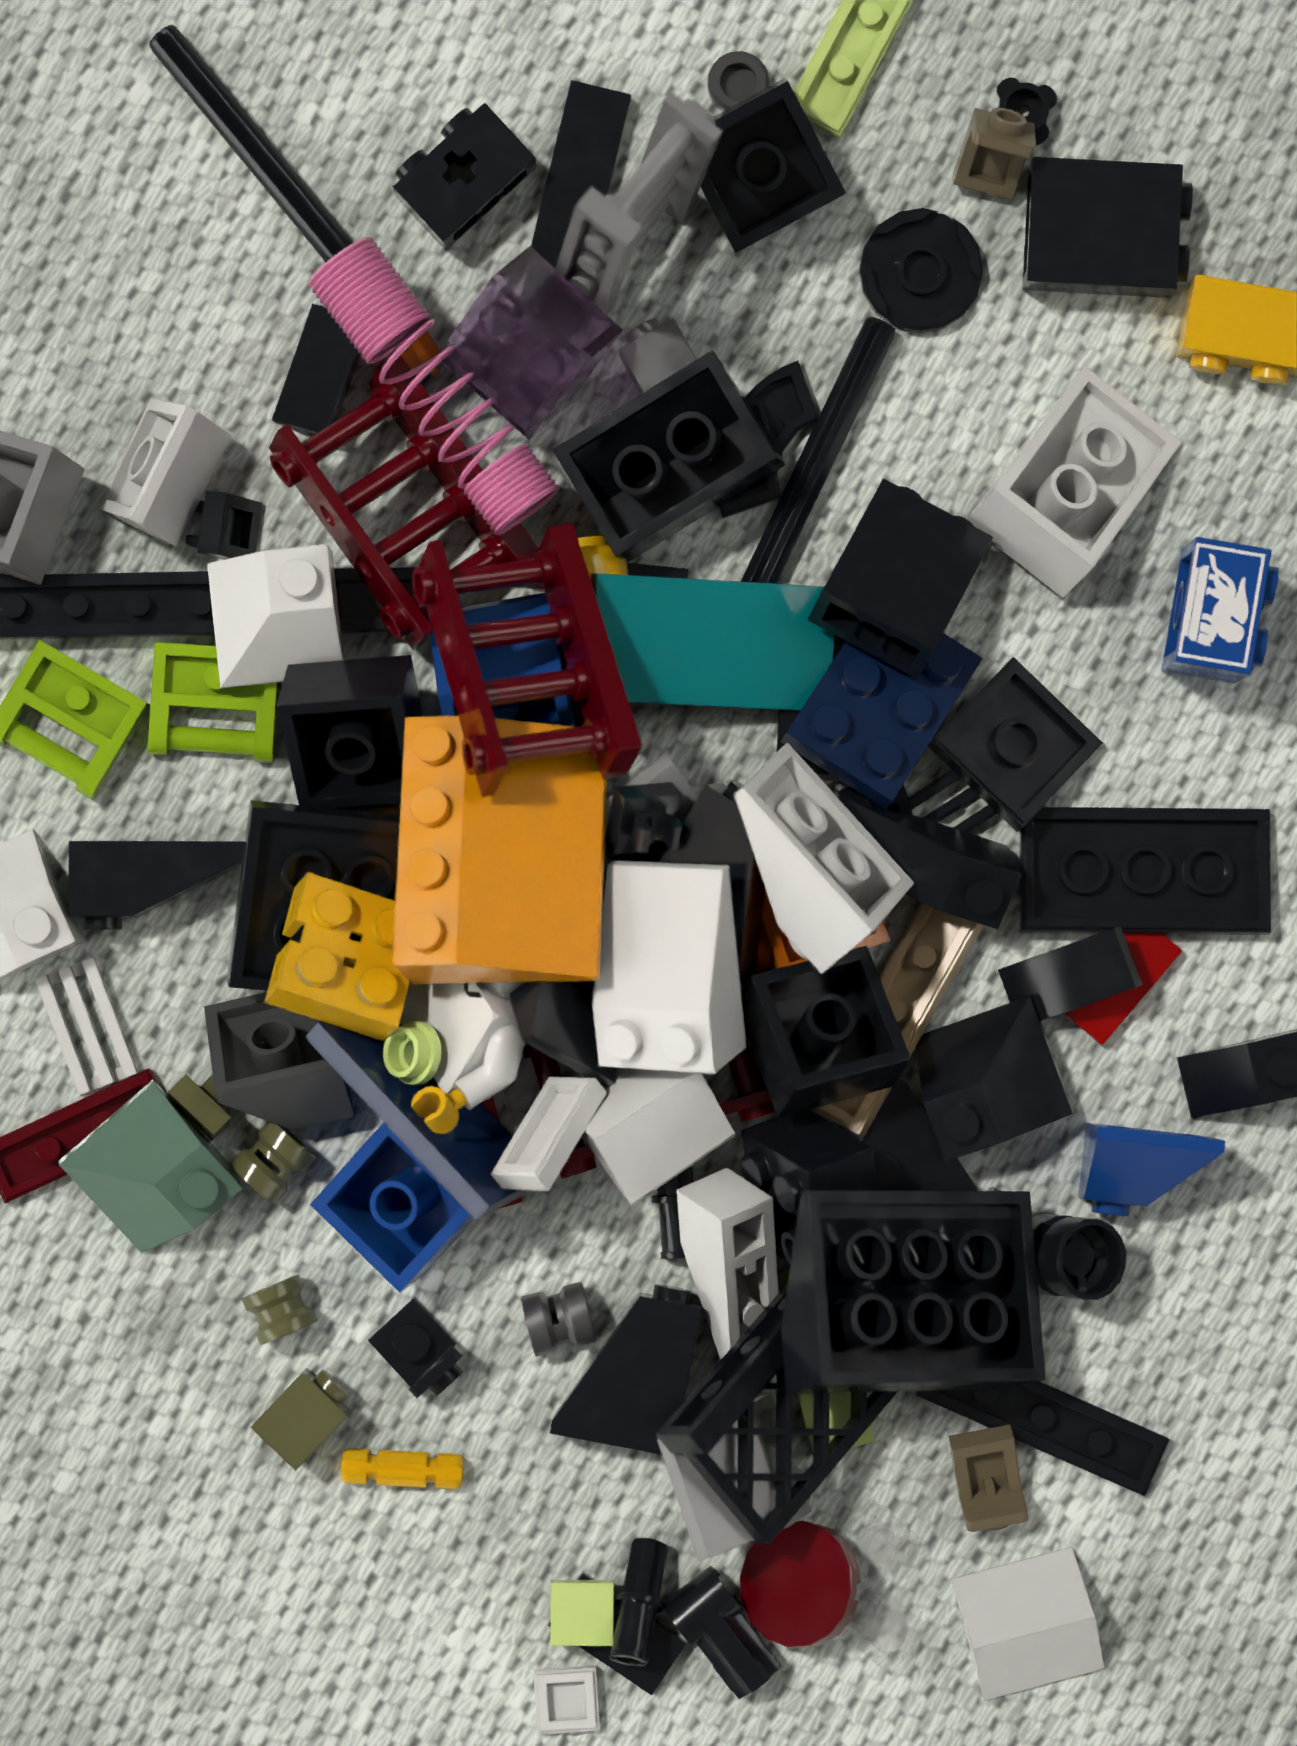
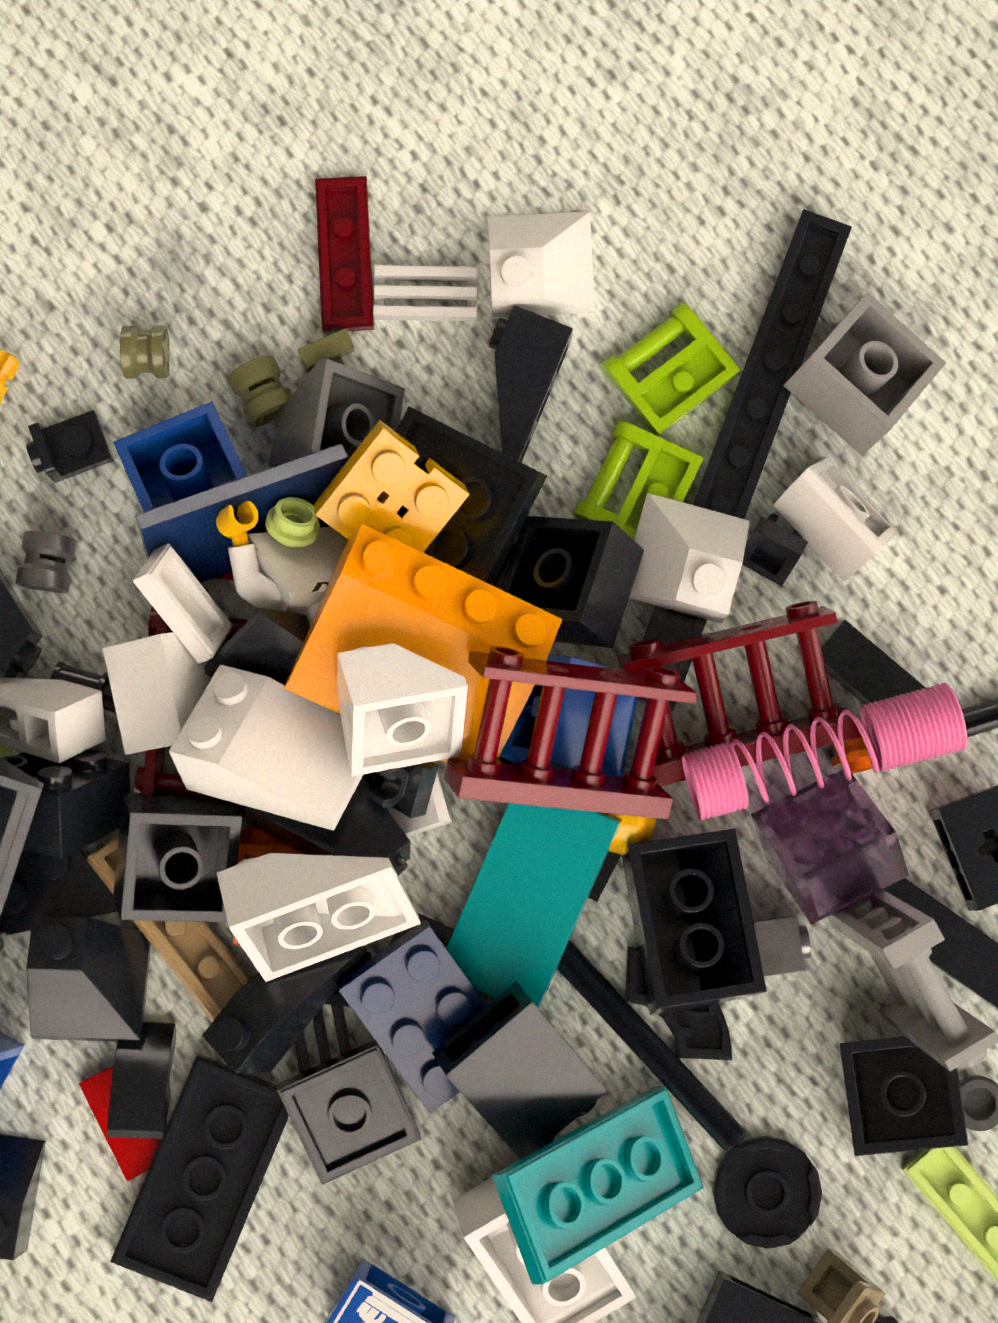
camera: 115 degrees right, 5 degrees down
(151, 1170) = (292, 297): sand green slope -> none
(303, 1416) = (54, 336): olive brick -> none
(574, 847) = (398, 708): none -> white slope
(981, 448) = (597, 1184): none -> teal tile

